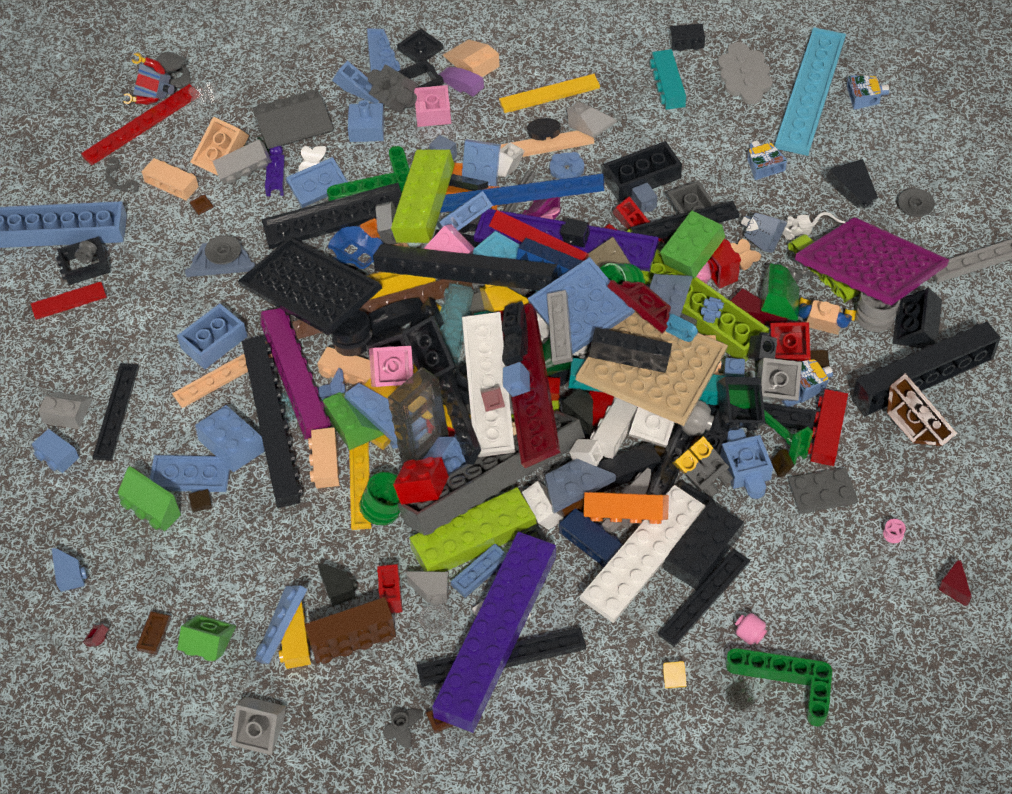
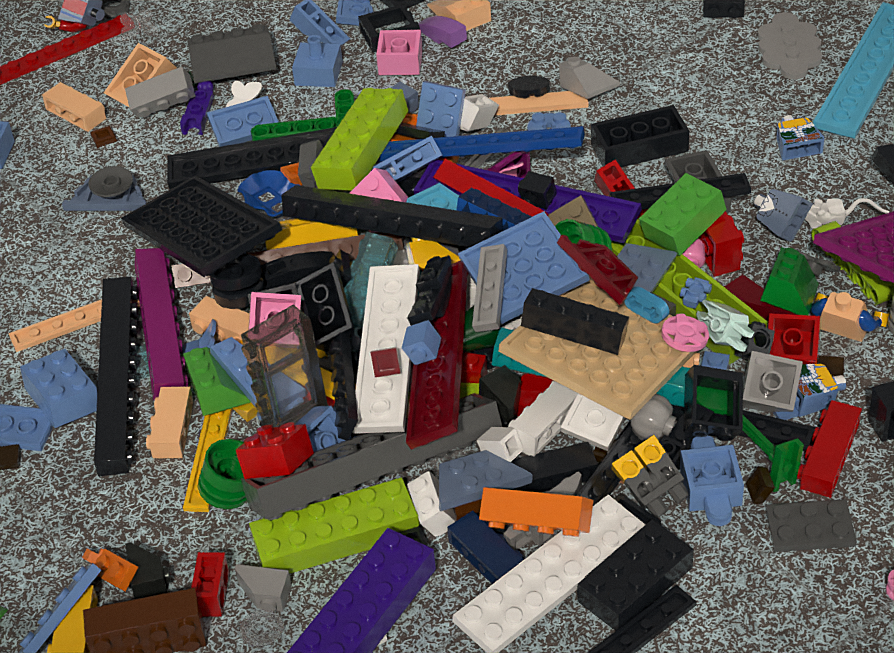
camera: 10 degrees right, 10 degrees down
(111, 181) = (8, 106): dark grey piece -> none
(212, 336) = (71, 273): medium blue brick -> none
(316, 586) = (113, 567): none -> orange hinge
(392, 88) = (355, 28): dark grey brick -> none
(479, 571) = (328, 577): medium blue plate -> none
(549, 93) = (544, 51): yellow tile -> none
(644, 197) = (637, 167): sand blue brick -> none
(668, 79) = (691, 45): teal brick -> none
(712, 346) = (685, 330): none -> bright pink wheel
(740, 337) = (725, 324): none -> light aqua hinge
(747, 256) = (753, 239): light nougat animal -> none

